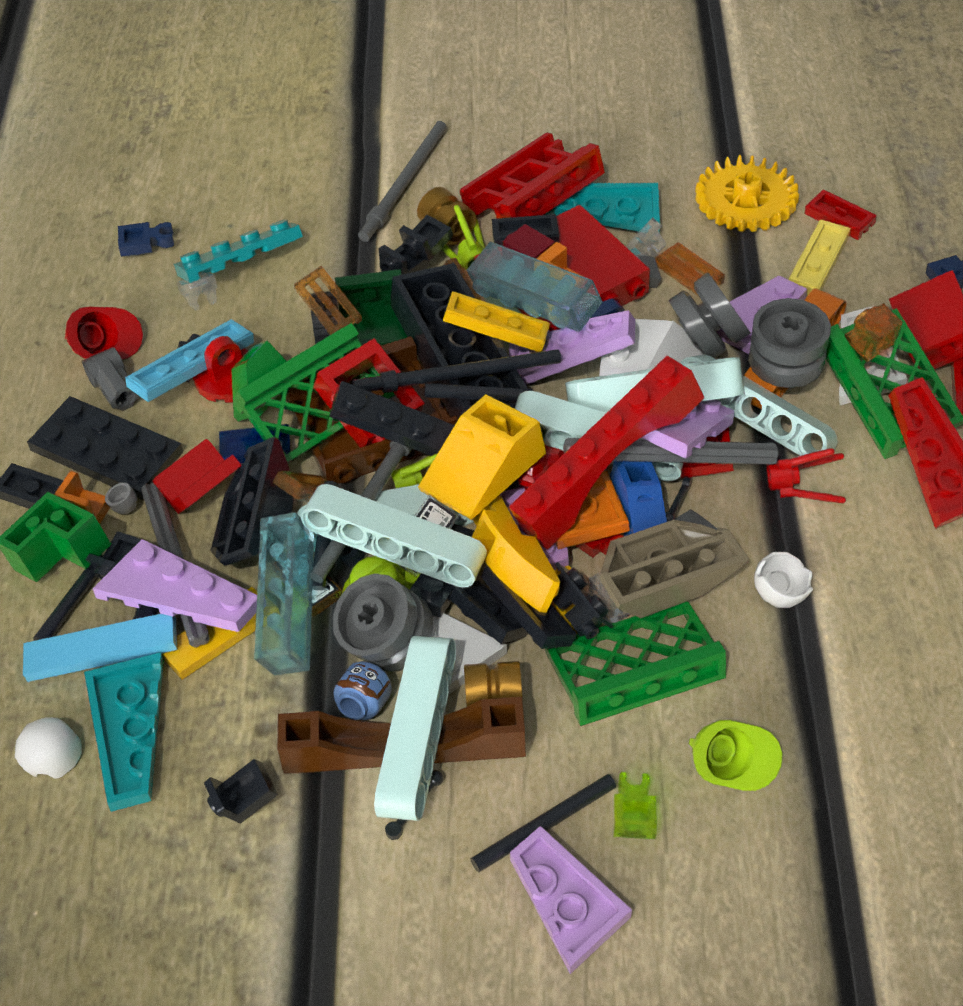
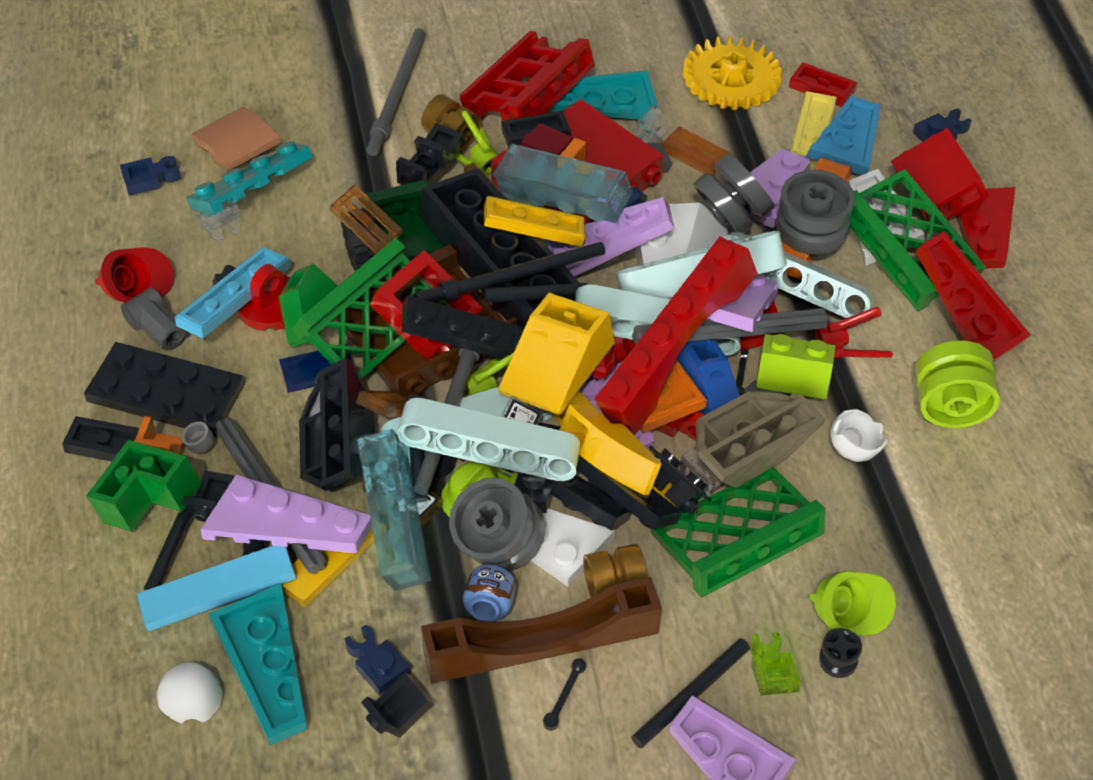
camera: 15 degrees left, 0 degrees up
(194, 475) = (268, 406): red panel -> none
(236, 211) = (236, 138): none -> nougat slope
(236, 743) = (377, 664): none -> dark blue plate
(415, 728) = (556, 621): light aqua beam -> none
(708, 794) = (849, 648): none -> black wheel
(733, 499) = (796, 366): none -> lime slope
(853, 269) = (849, 136): none -> dark azure wing
(874, 331) = (892, 193): clear orange brick -> none
(900, 539) = (957, 384): none -> lime wheel

